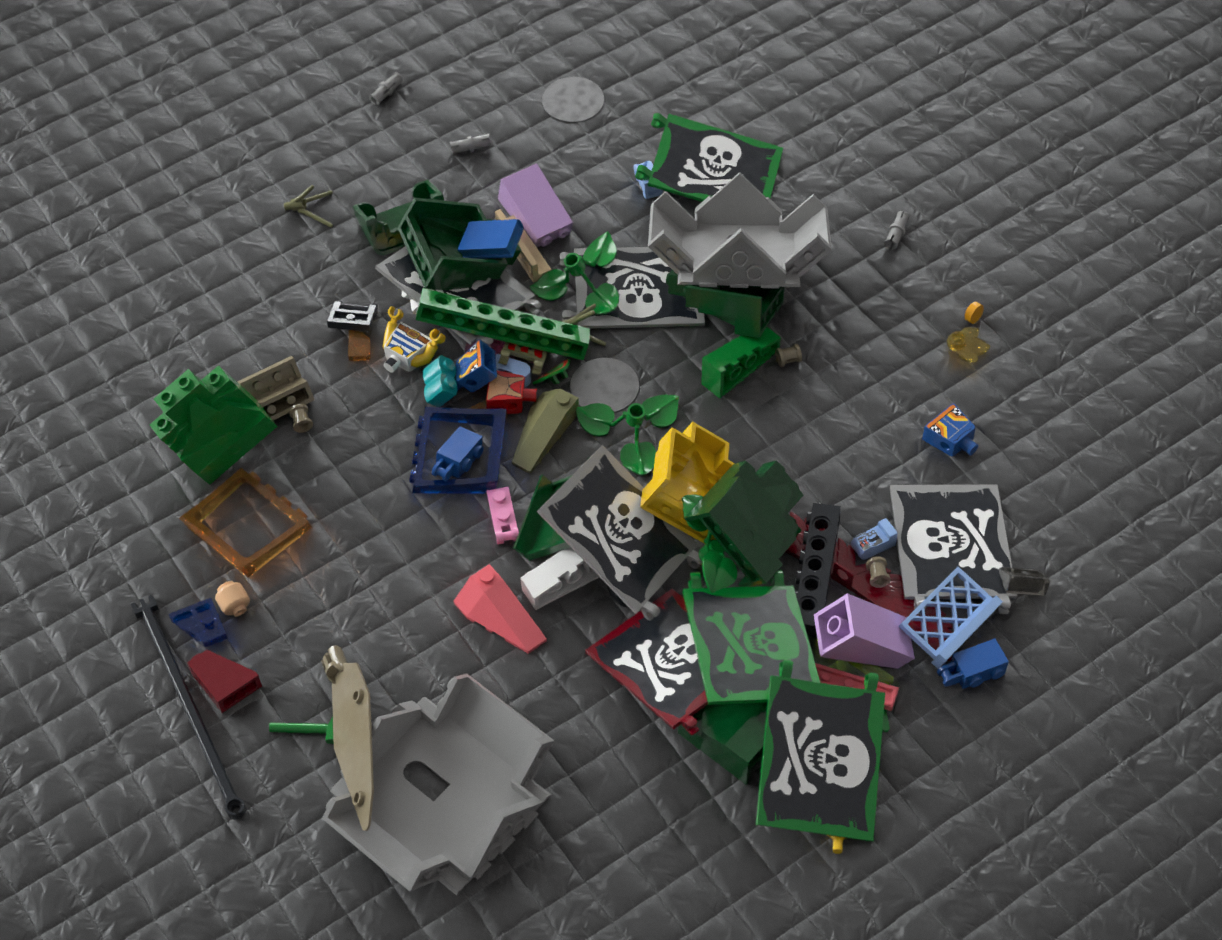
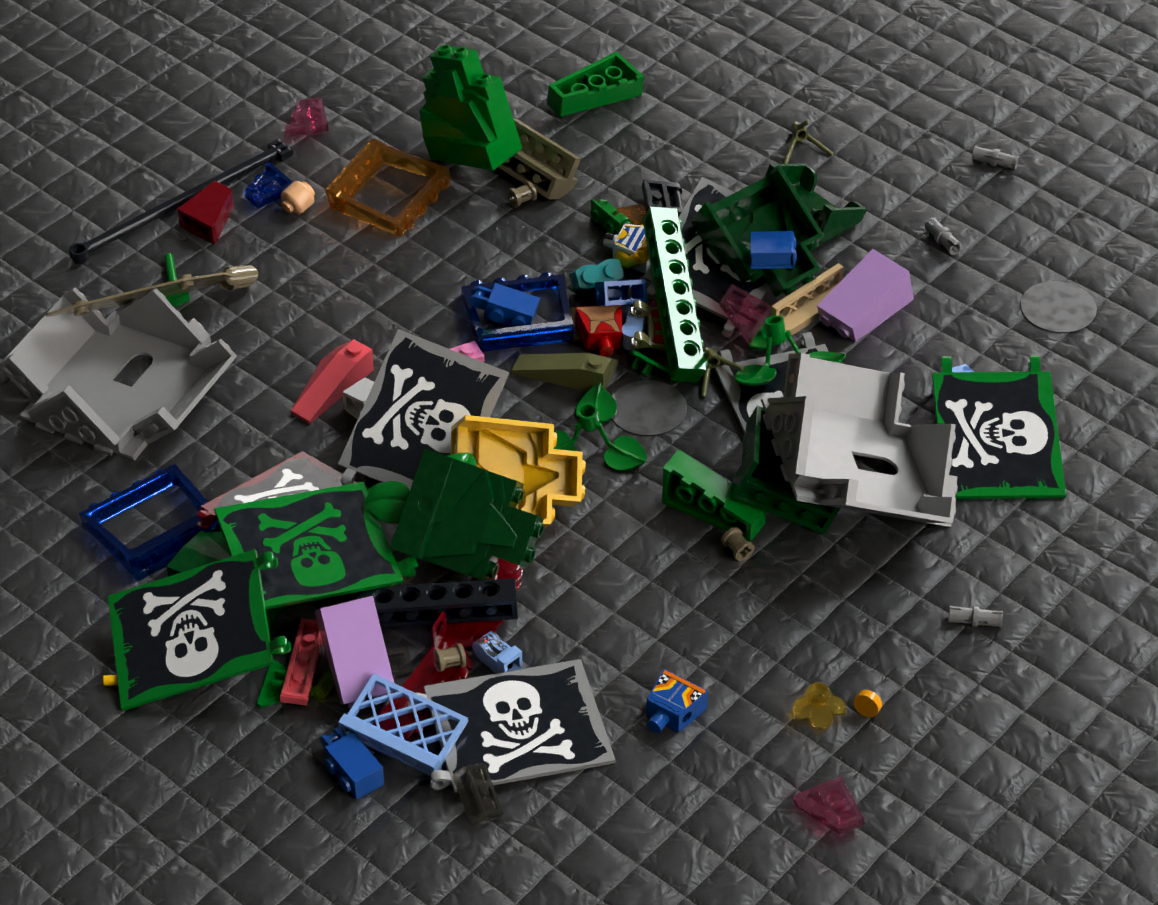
camera: 75 degrees right, 10 degrees down
(109, 572) = (308, 118): none -> clear pink wing
(173, 326) = (595, 85): none -> green wedge
(370, 357) = (605, 215): none -> green hinge
(528, 287) = (745, 311): none -> clear pink wing
(699, 802) = (159, 550): none -> clear blue windscreen
(1069, 357) = (831, 805): none -> clear pink wing

